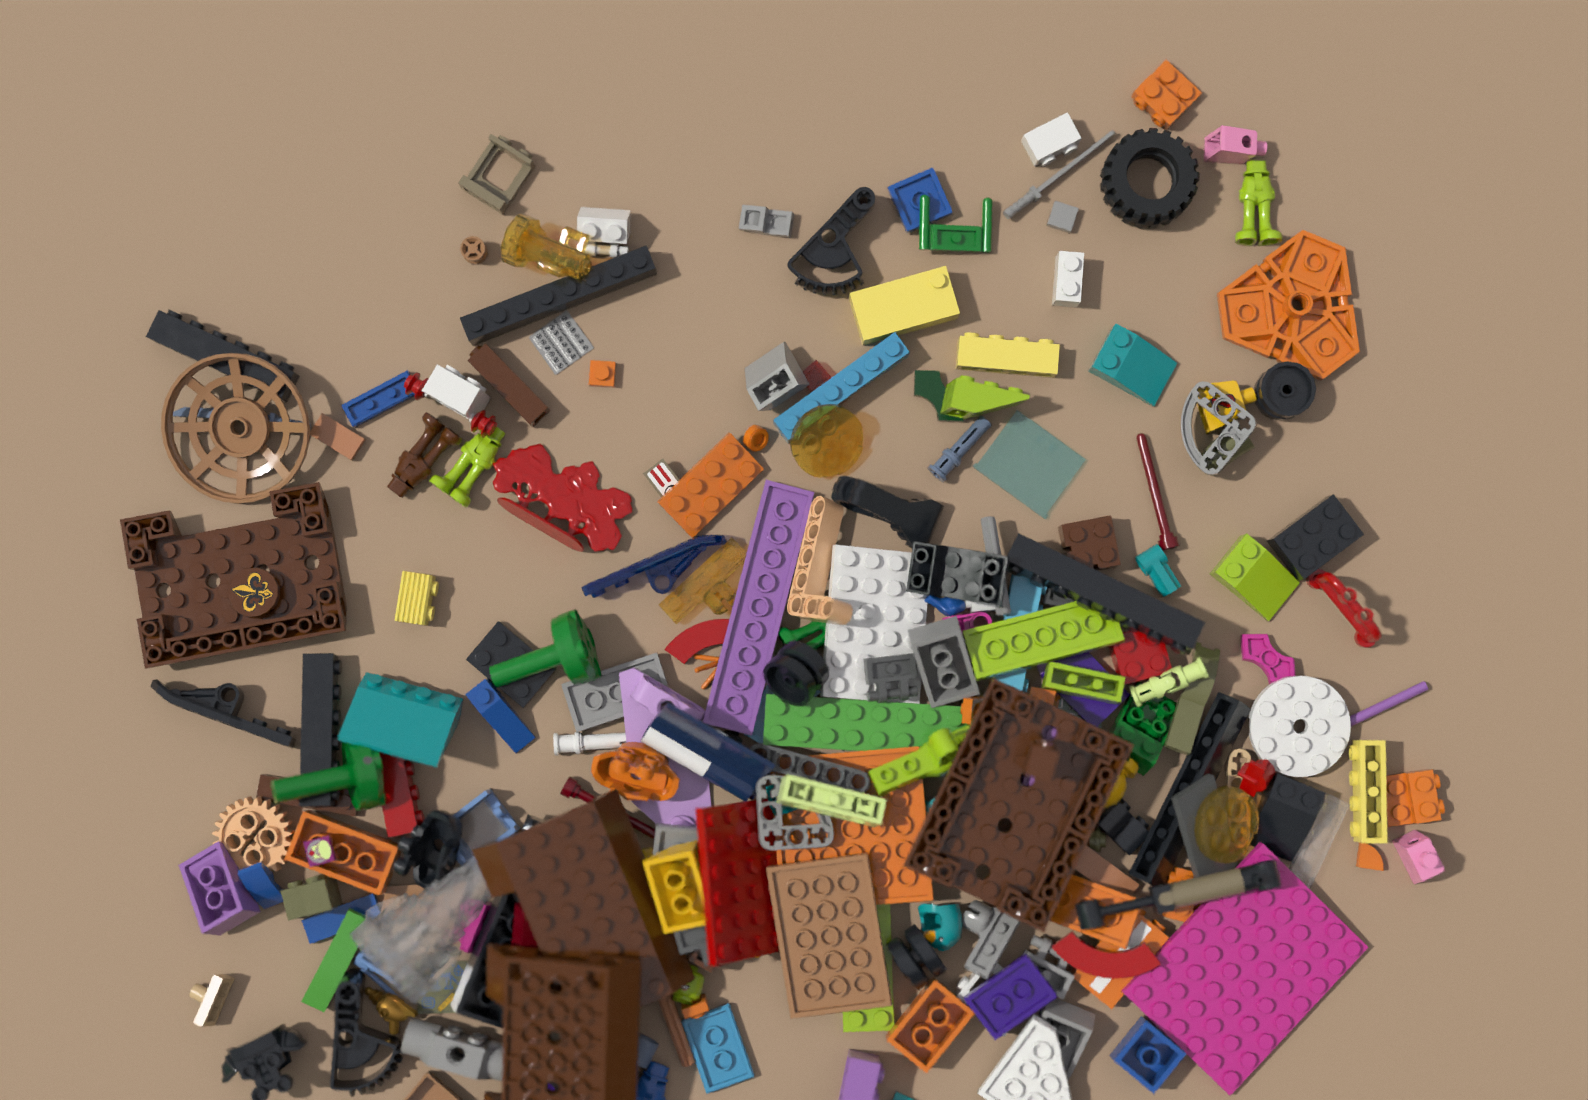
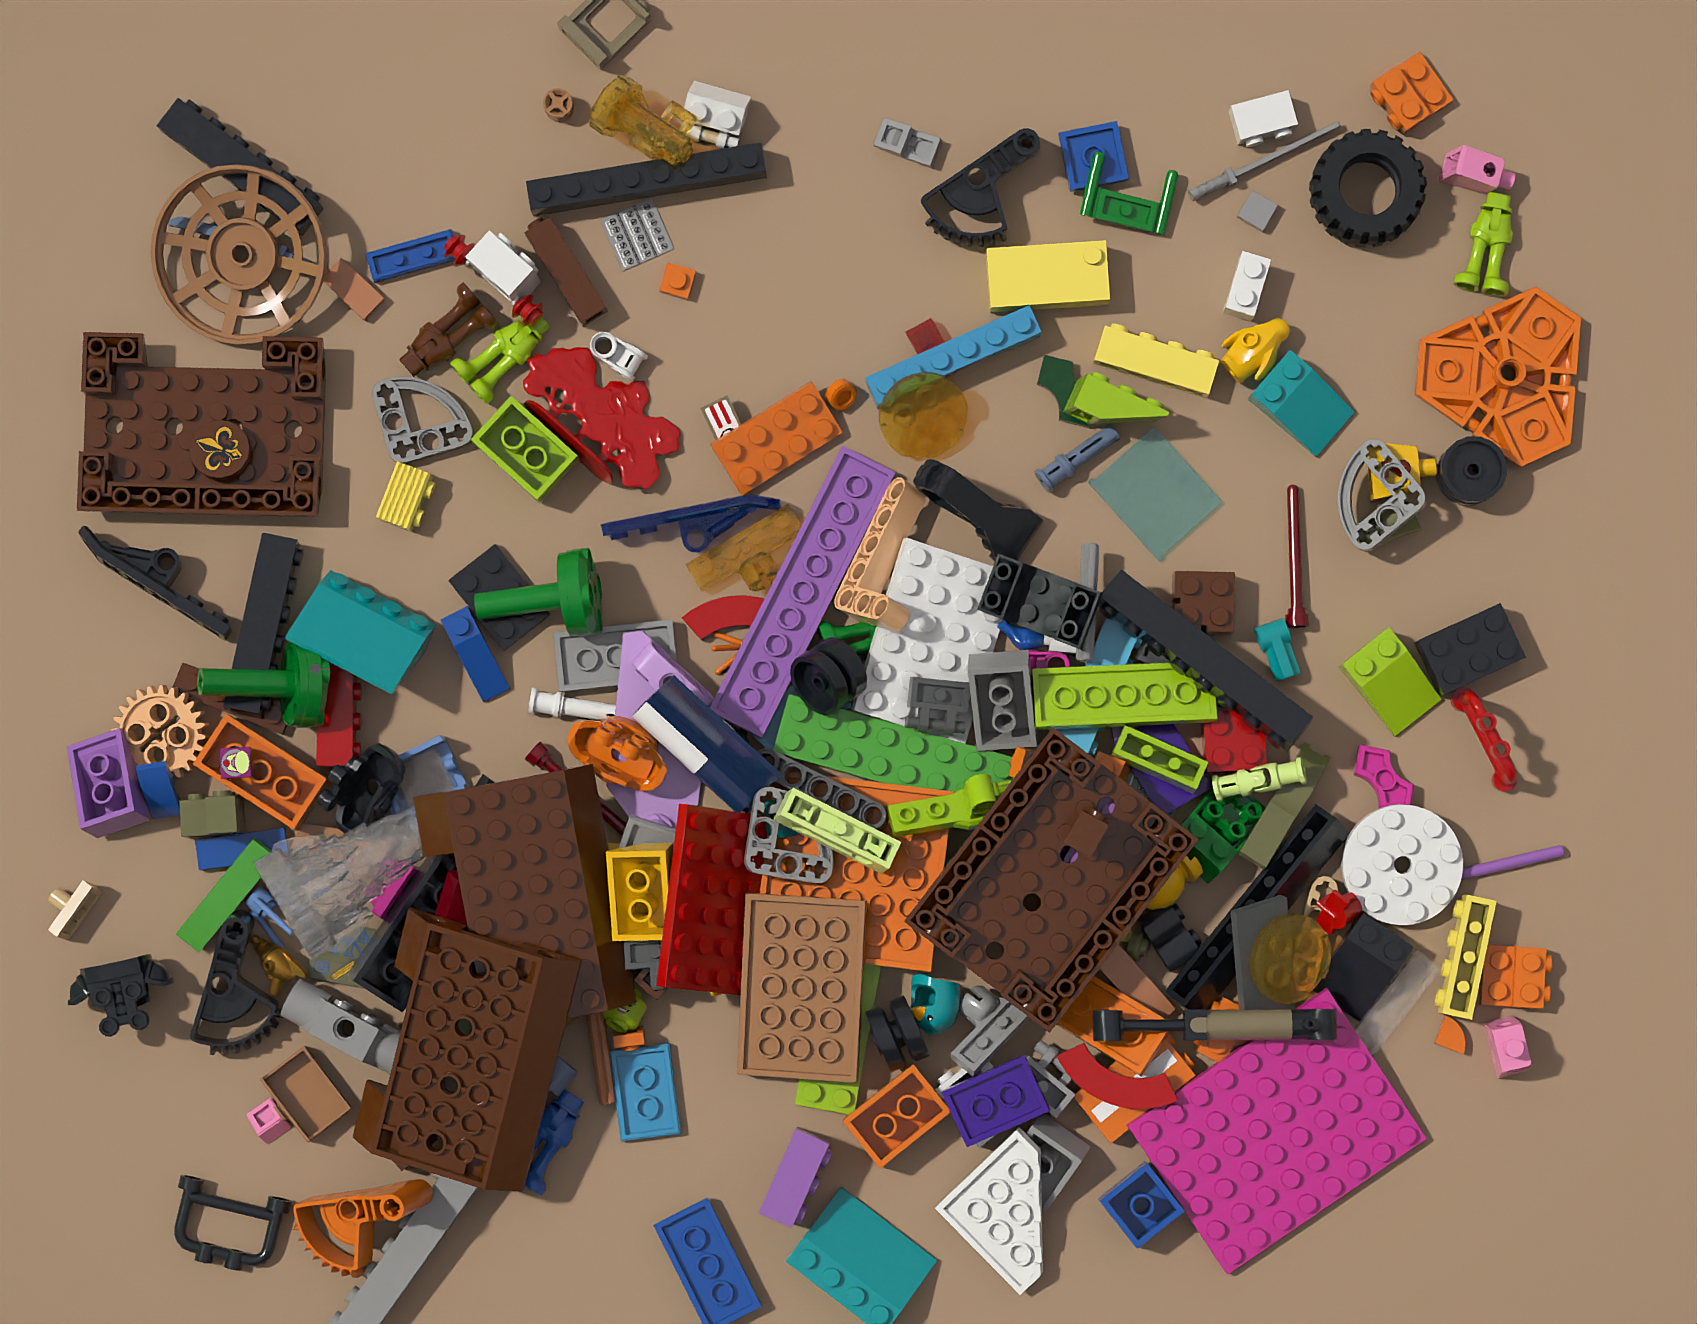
camera: 15 degrees right, 0 degrees up
(405, 546) = (404, 433): none -> light grey beam
(506, 538) = (525, 449): none -> lime brick
(567, 444) = (619, 355): none -> white piece
(774, 378) = (877, 329): light grey slope -> none
(1085, 330) = (1254, 349): none -> yellow animal

